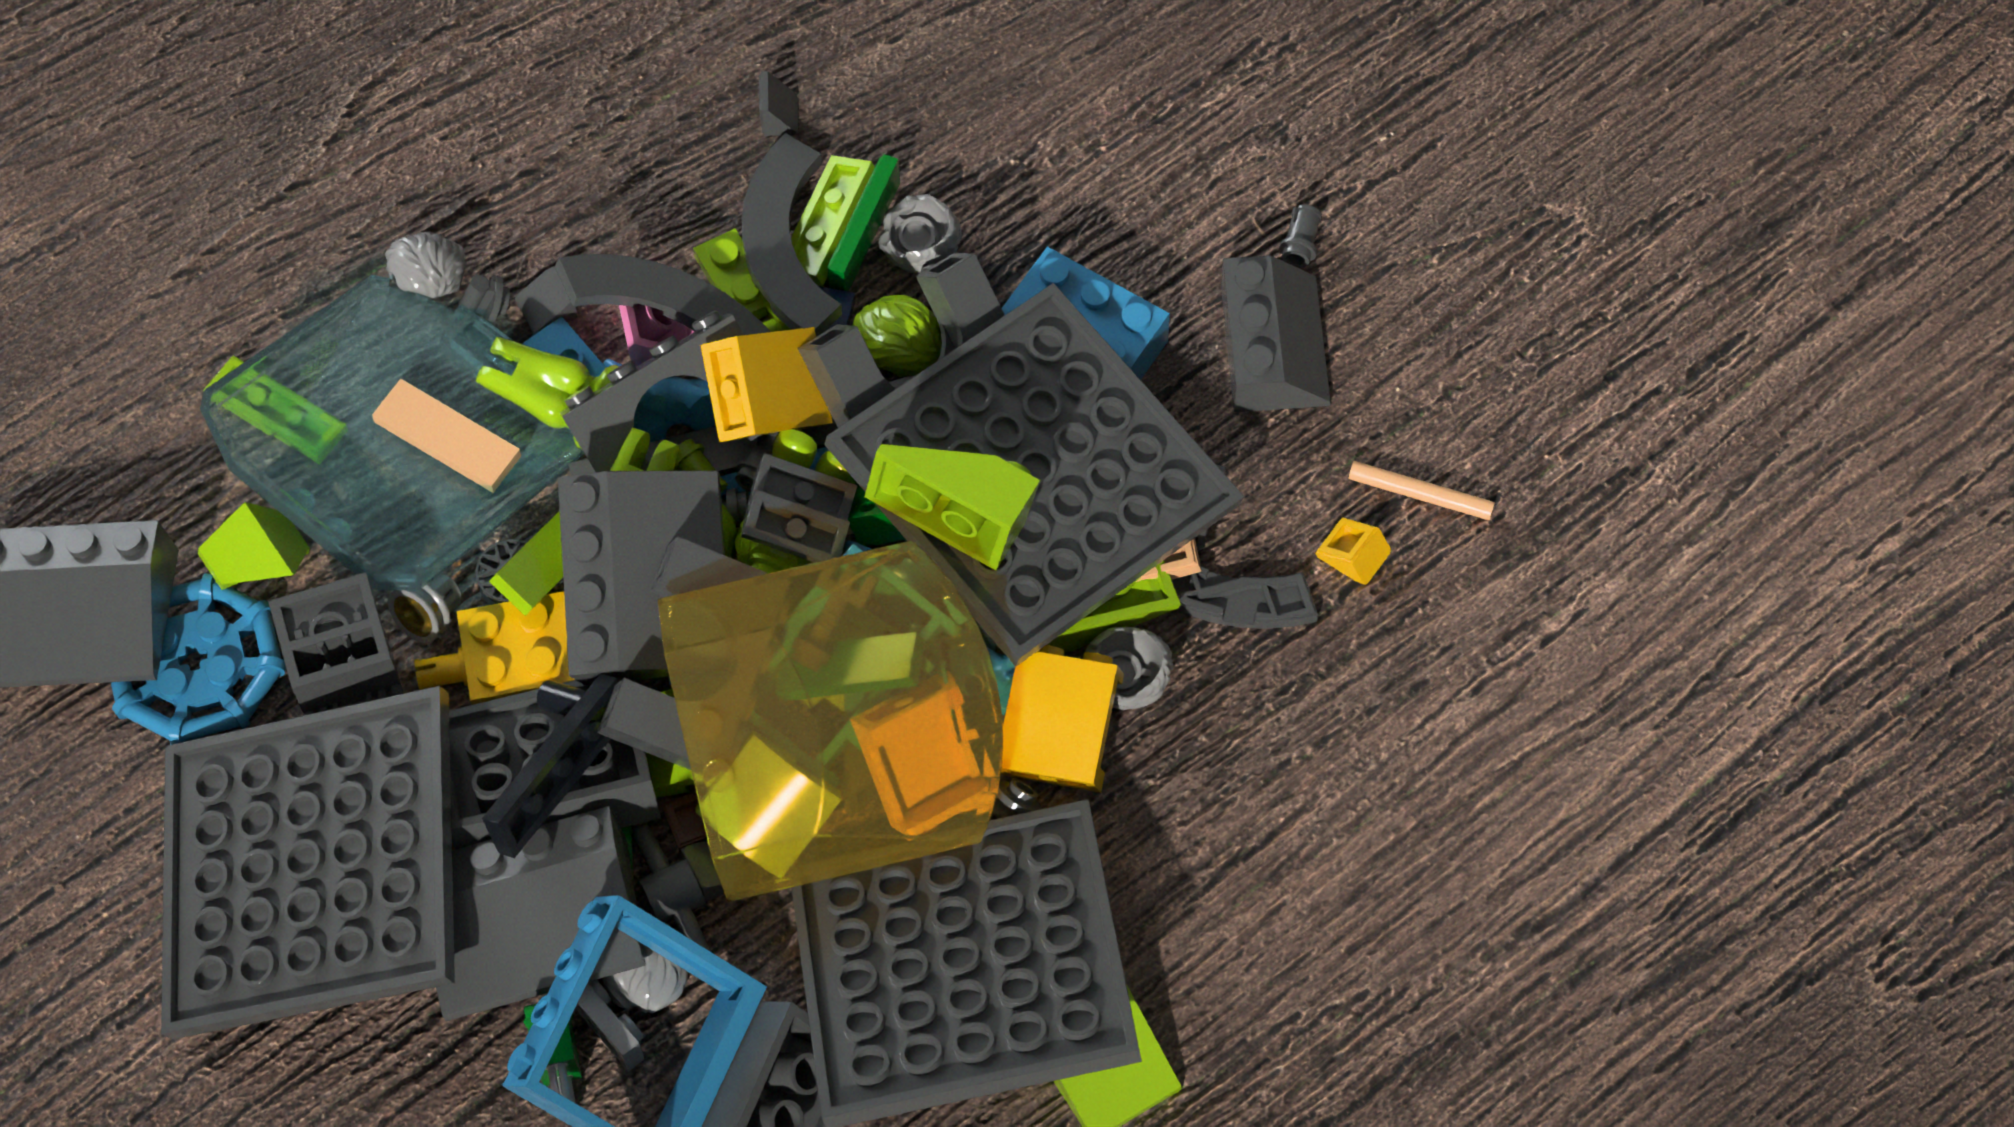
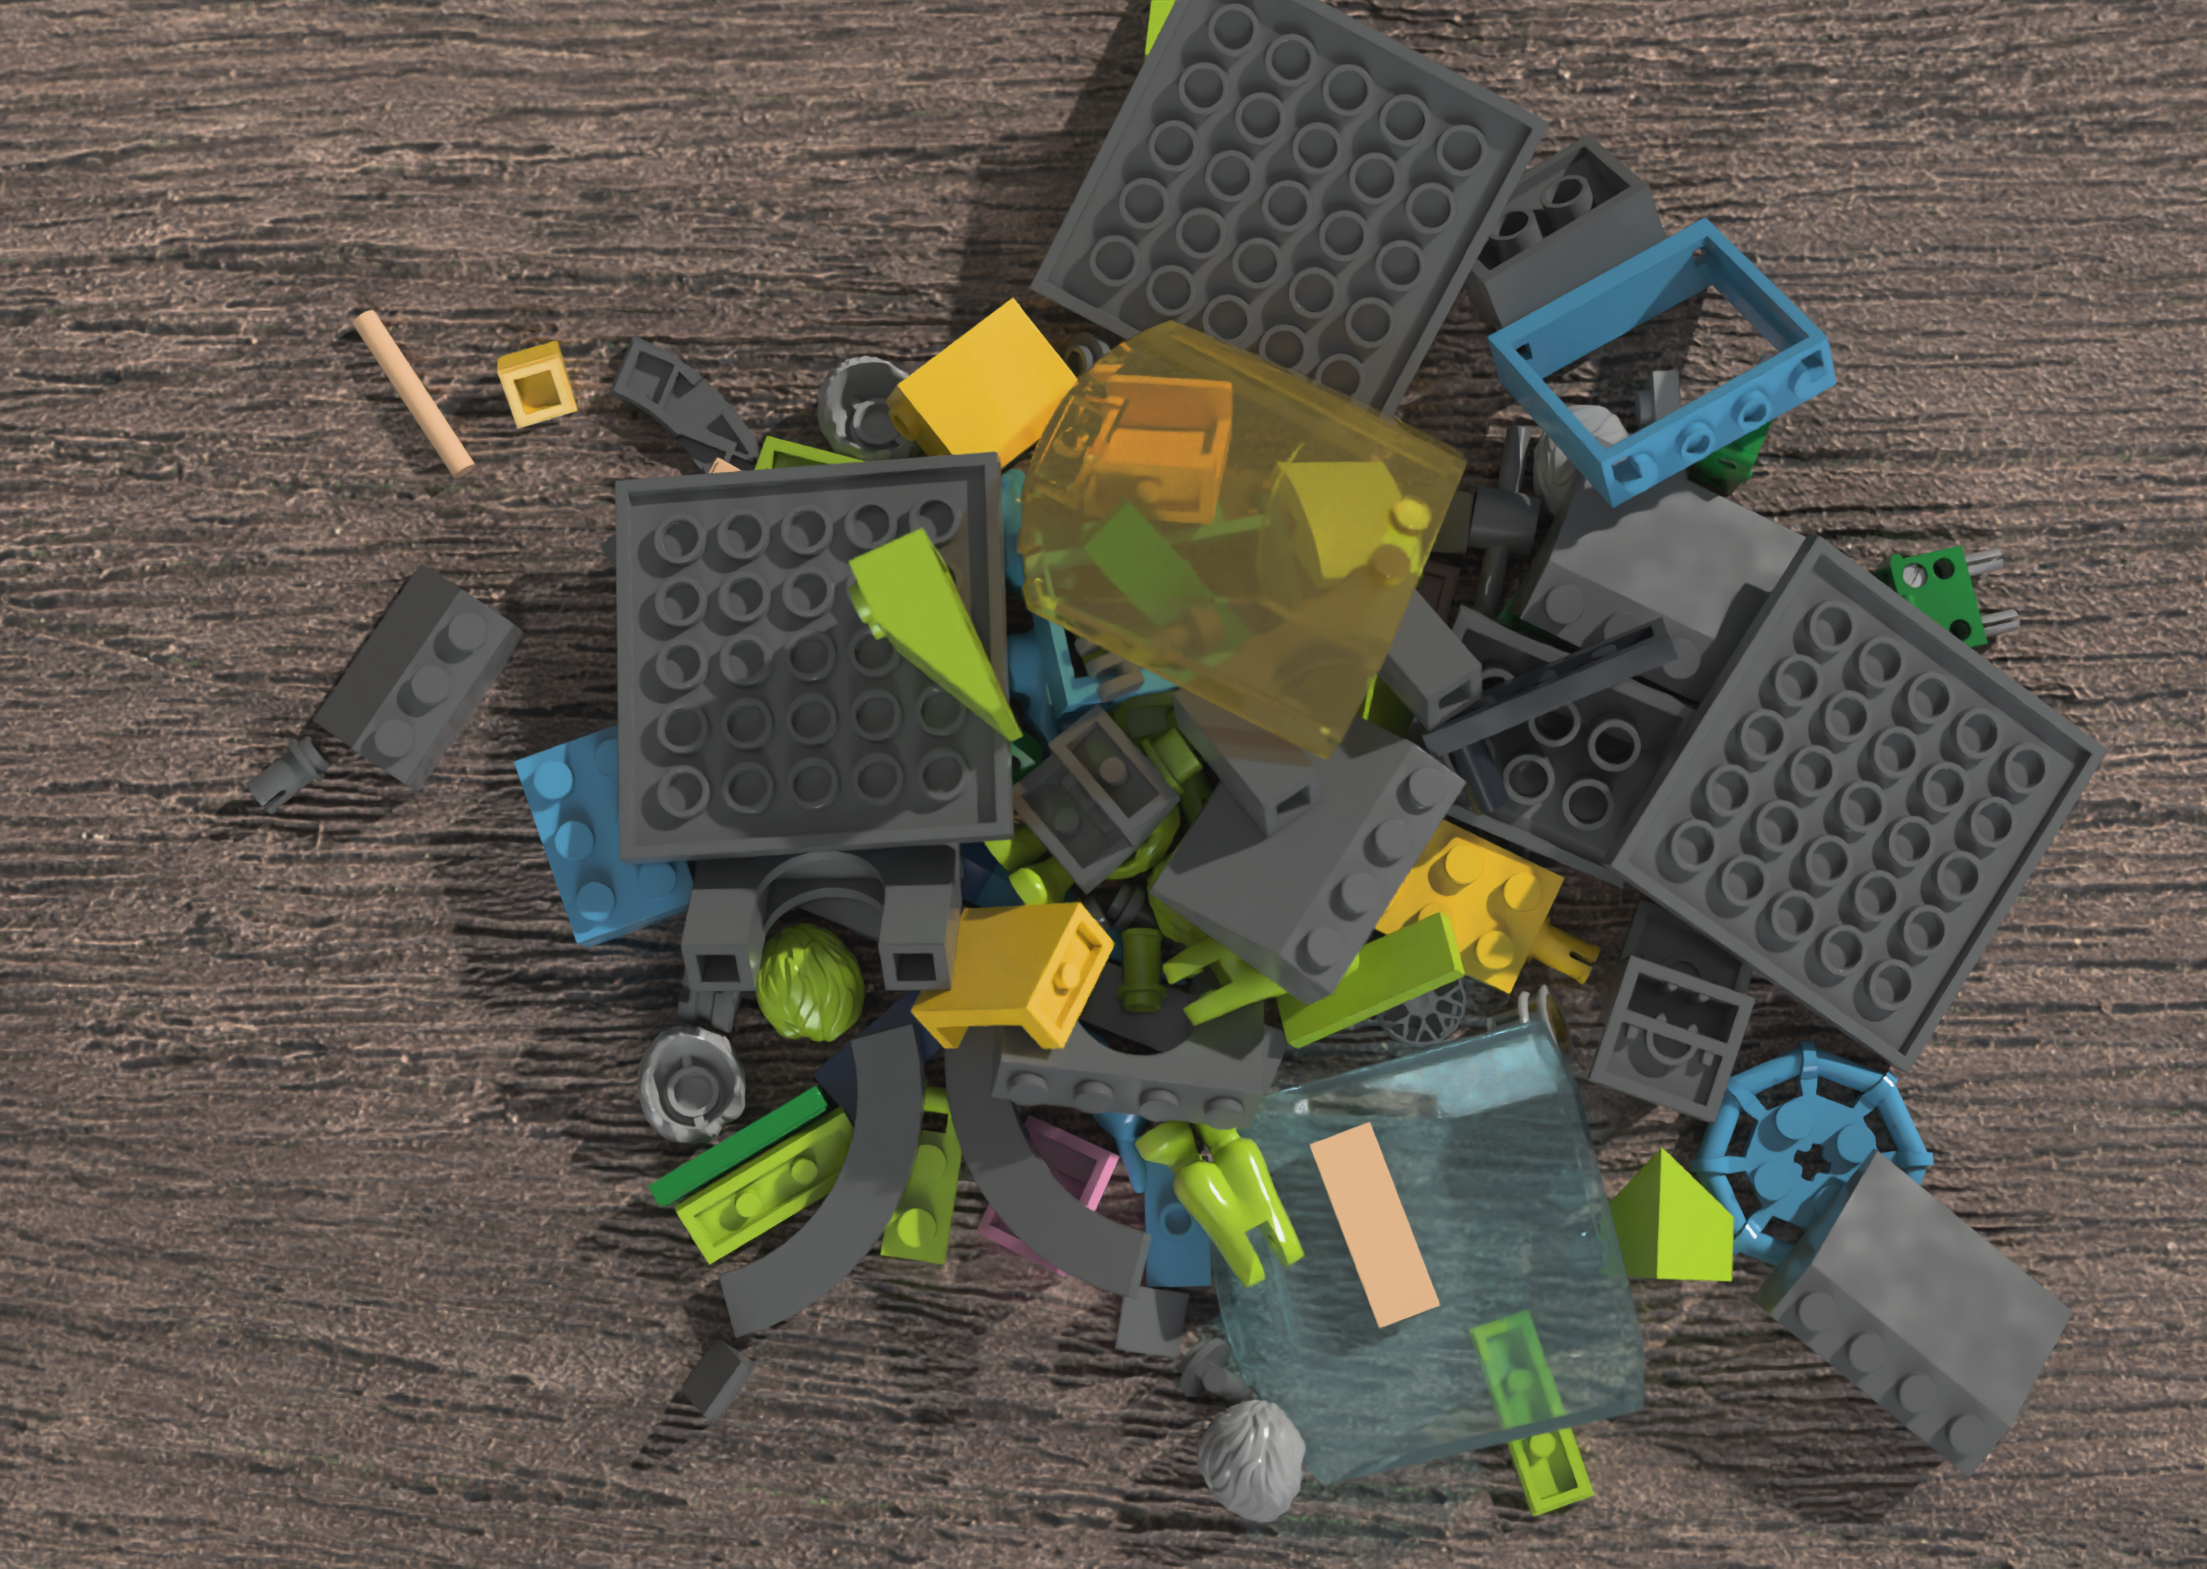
camera: 140 degrees left, 20 degrees up
(345, 1041) = (1951, 597): none -> green piece

